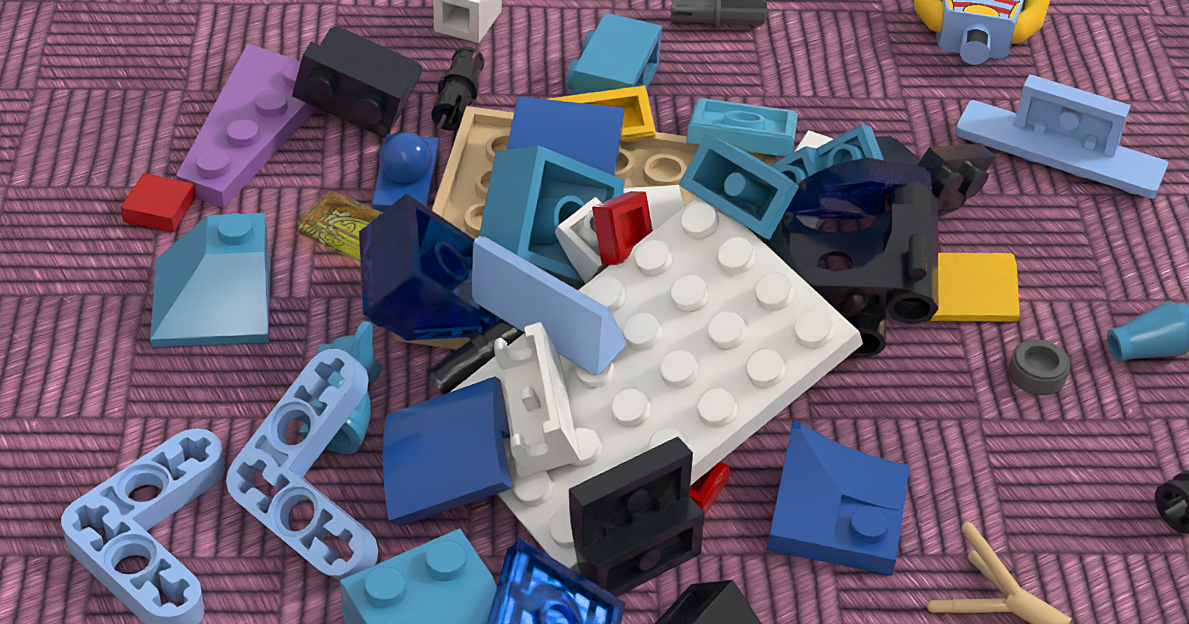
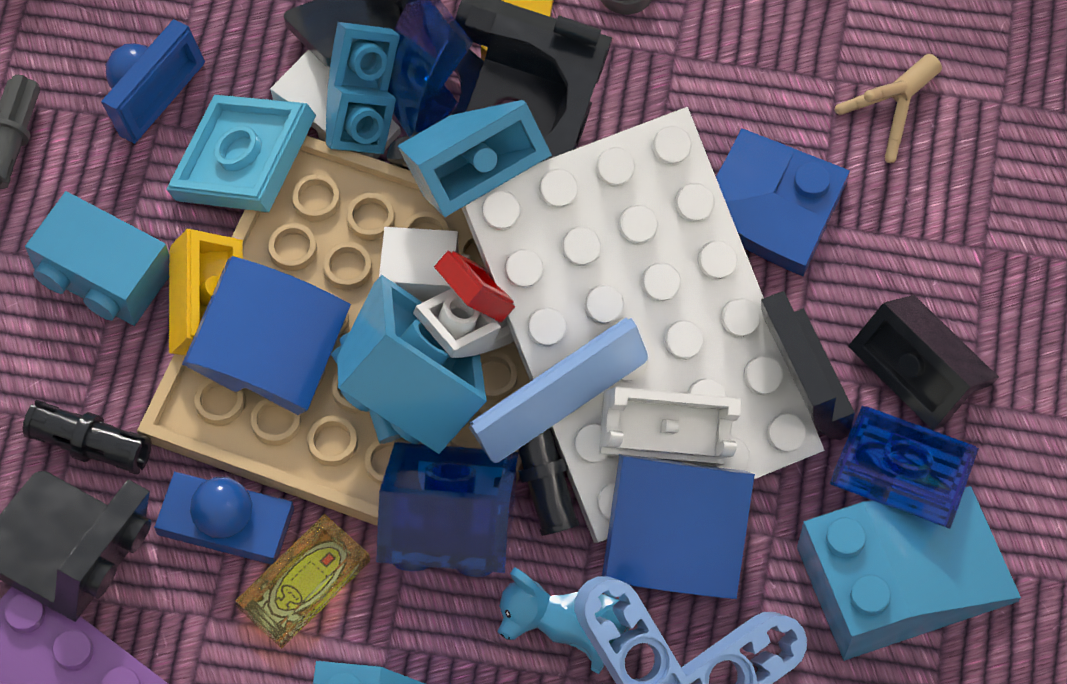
camera: 75 degrees left, 20 degrees up
(792, 70) = (149, 78): none -> blue tile

